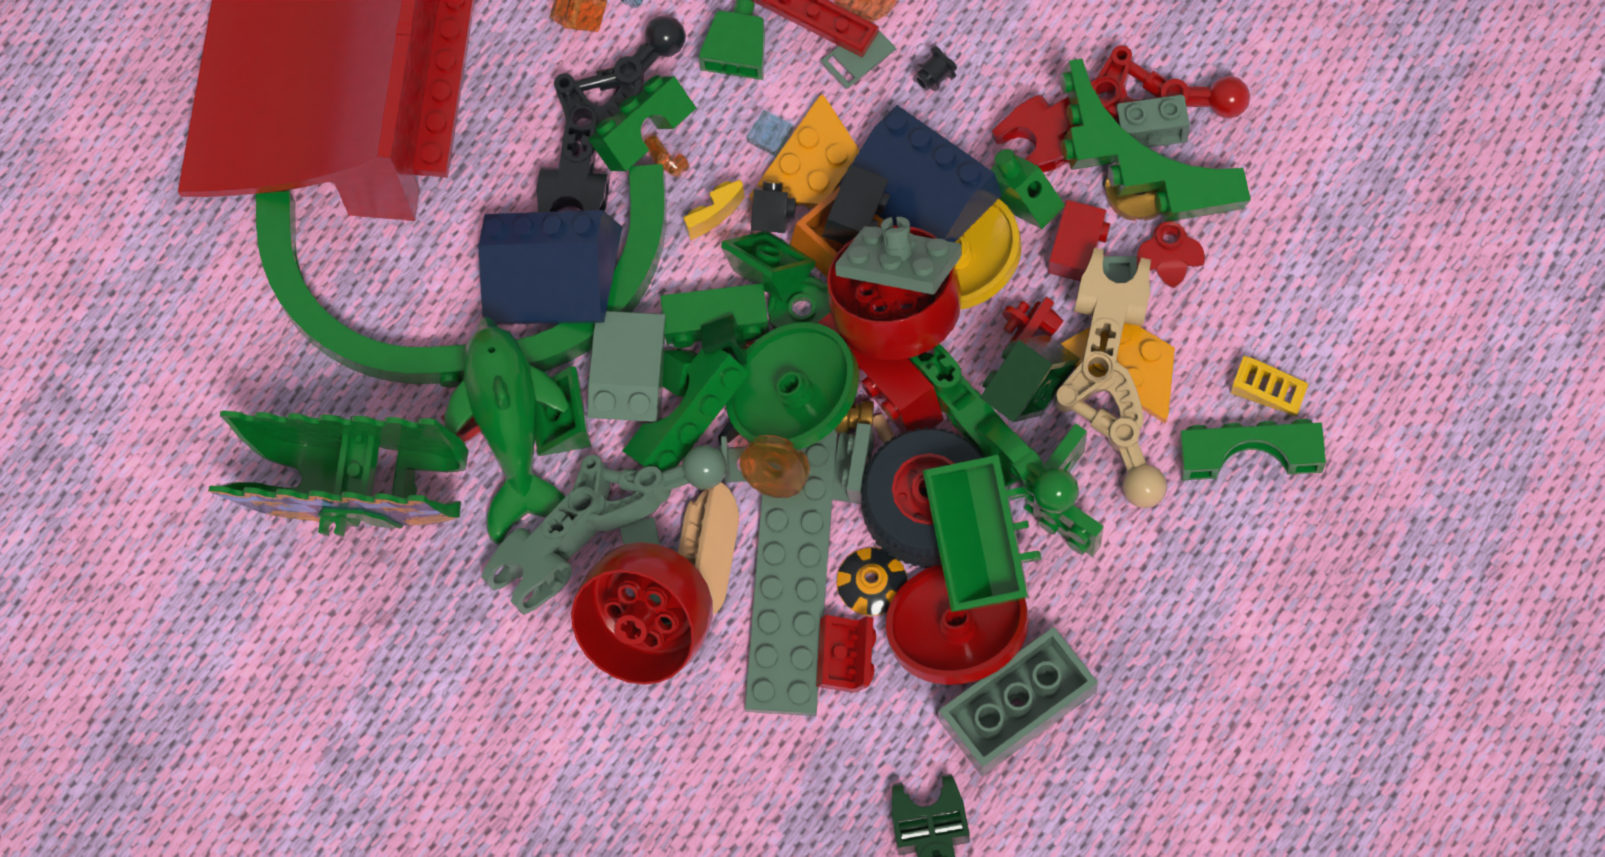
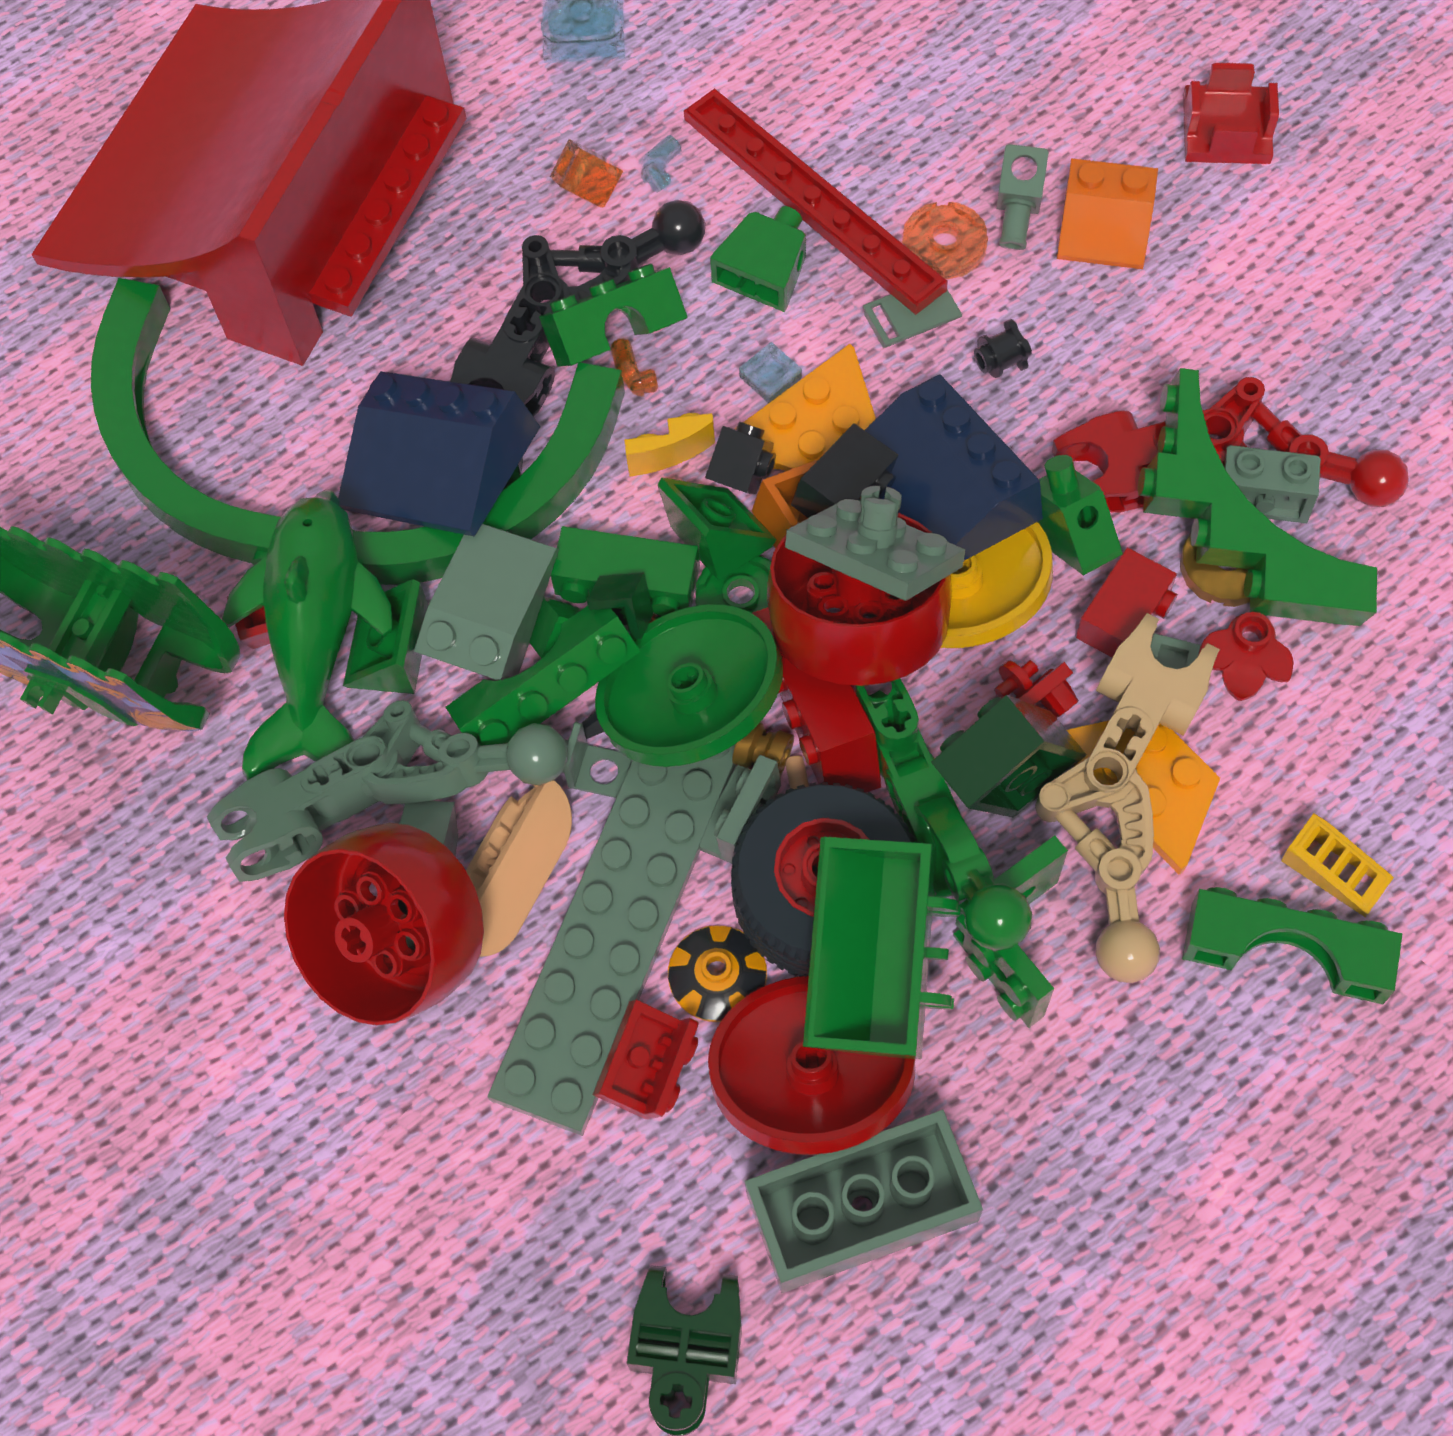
camera: 15 degrees right, 5 degrees down
(767, 480) = (614, 793): clear orange tile -> none

